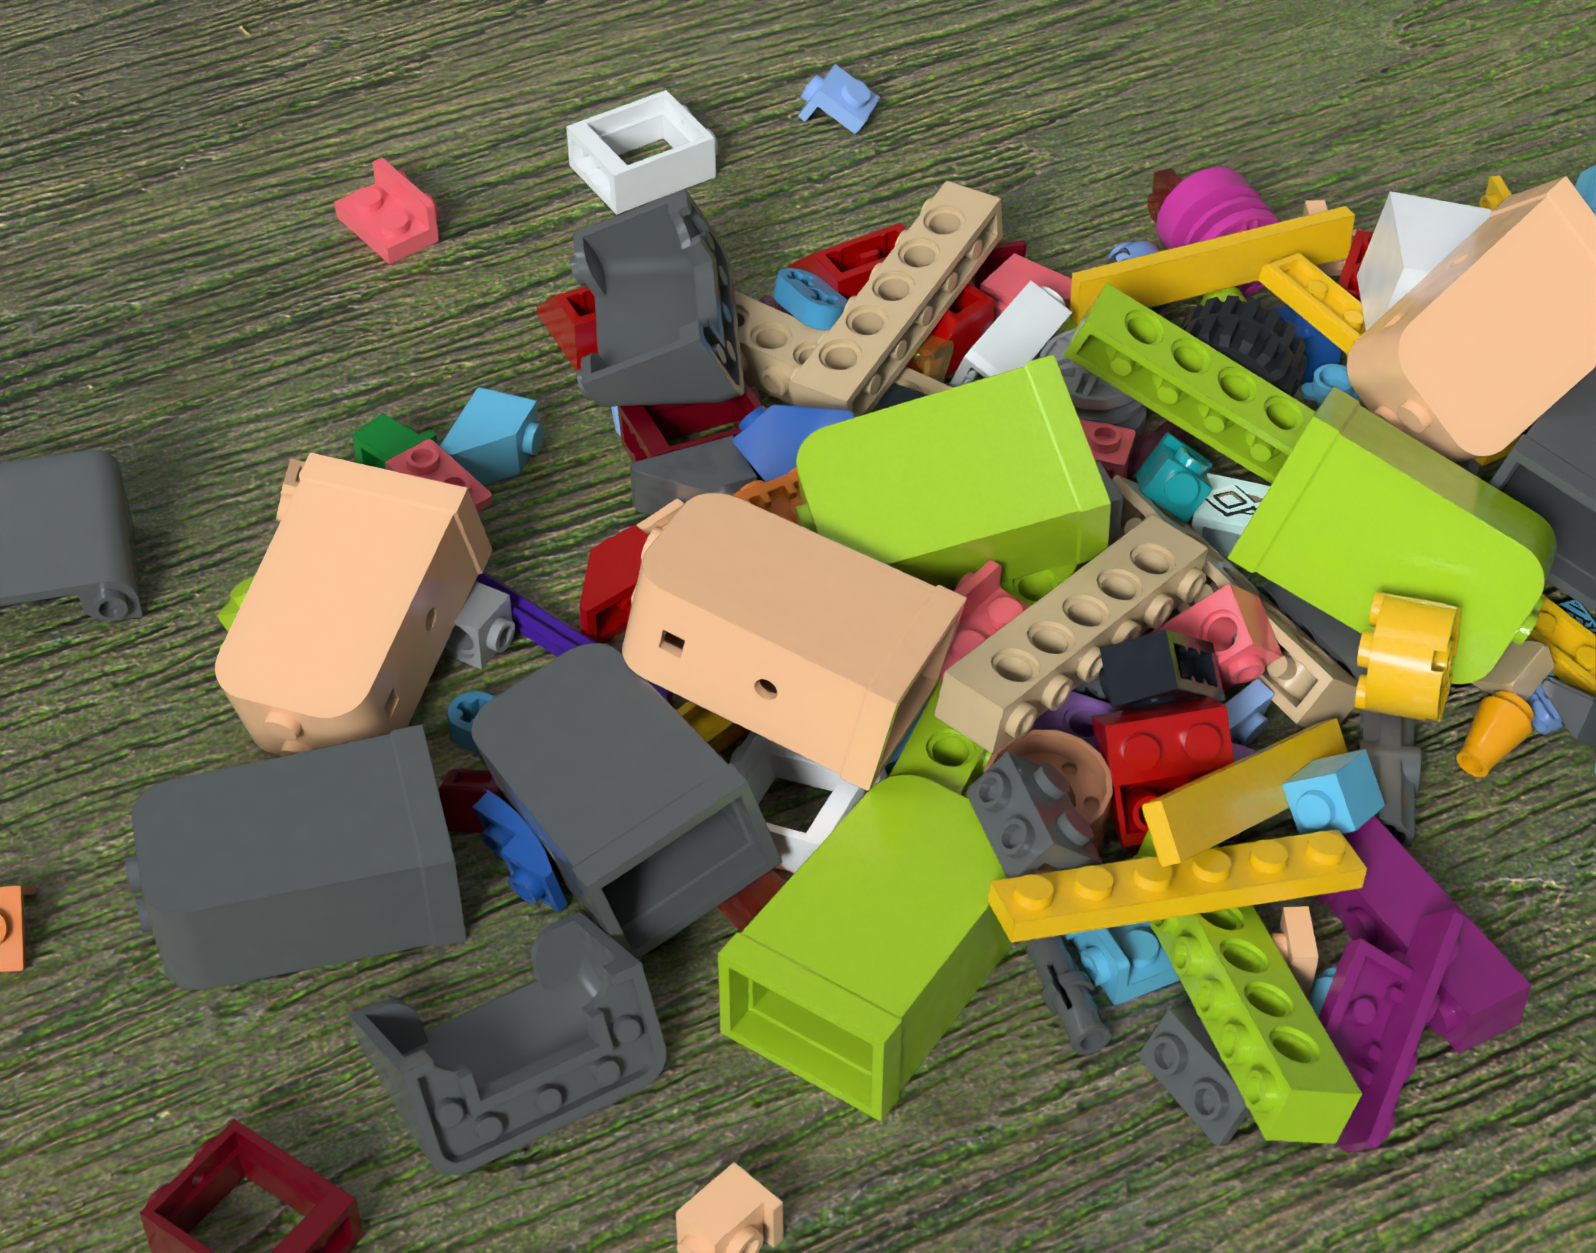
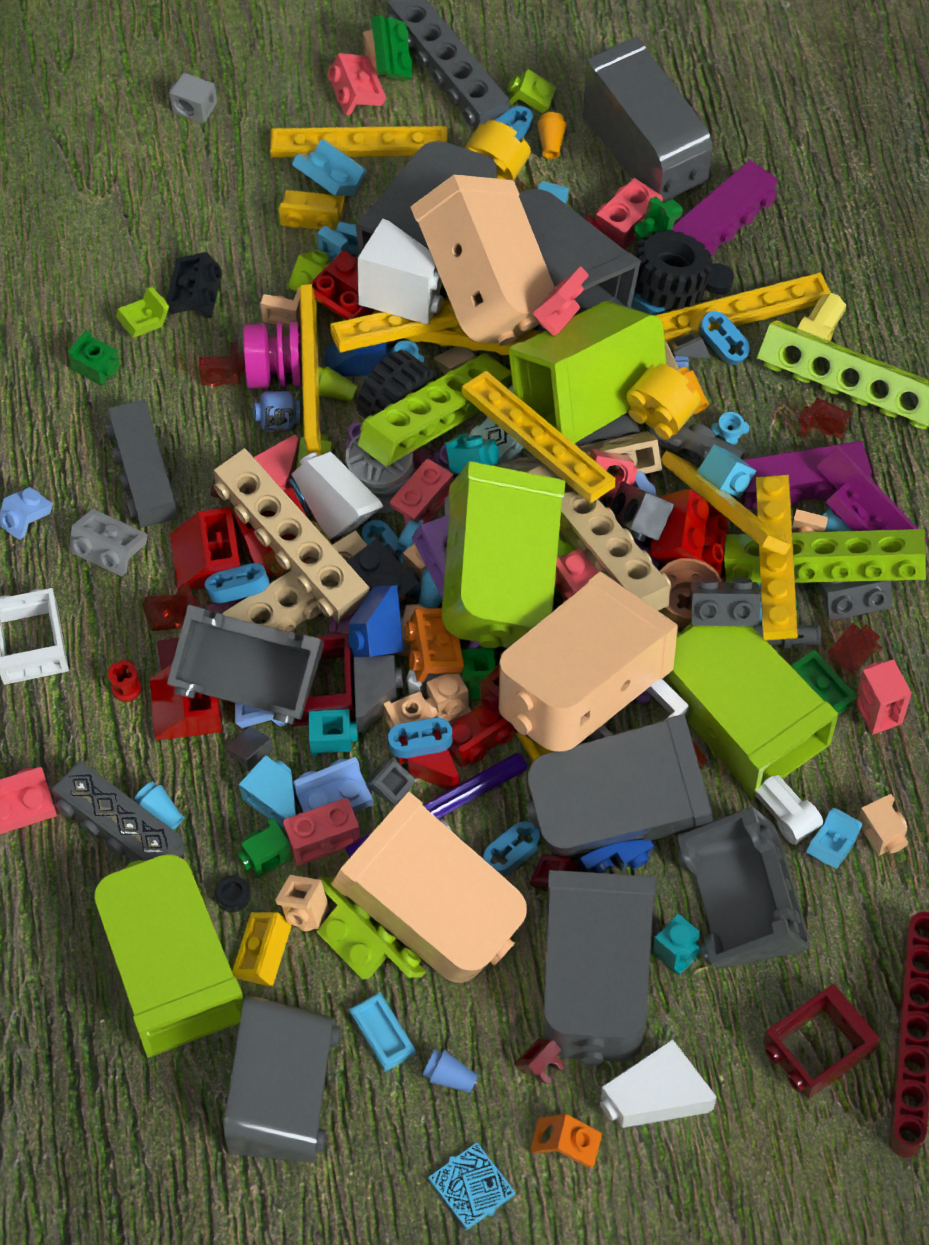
camera: 70 degrees left, 15 degrees up
(83, 744) = (449, 1072): none -> medium blue cone
(110, 1012) = (657, 1090): none -> white slope
(118, 844) = (538, 1057): none -> dark red tile
(139, 664) = (382, 1031): none -> medium azure tile
(184, 385) = (167, 953): none -> lime piece
(232, 506) = (262, 948): none -> yellow slope
(322, 442) = (232, 894): none -> black tile
(382, 965) = (677, 945): none -> teal brick
(388, 307) = (114, 816): none -> dark grey brick
(429, 336) = (159, 804): none -> medium azure cone
(528, 505) = (333, 784): none -> light blue bracket
(562, 407) = (250, 747): none -> dark grey slope
(562, 564) = (390, 781): none -> dark grey slope
(610, 480) = (331, 731): none -> teal brick
(616, 549) = (420, 738): none -> dark azure beam
(665, 1154) = (835, 838): none -> medium azure bracket
(699, 1083) = (794, 817): none -> white piece
(751, 265) = (168, 611): none -> clear red bracket
(831, 179) = (105, 541): none -> light grey bracket
(975, 1060) = (825, 681): none -> green plate
(984, 1141) = (882, 696): none -> coral brick
(1000, 162) = (142, 464): none -> dark grey brick
(1092, 1095) = (855, 647): none -> clear red bracket
(1117, 91) = (93, 358): none -> green brick
(1214, 506) = (538, 437): none -> yellow plate
(1218, 115) = (143, 314): none -> lime bracket
(1306, 153) = (194, 284): none -> black bracket
(1457, 812) = (730, 420): none -> medium azure plate
(1467, 424) = (560, 304): none -> coral bracket
(1557, 925) = (826, 417): none -> clear red bracket

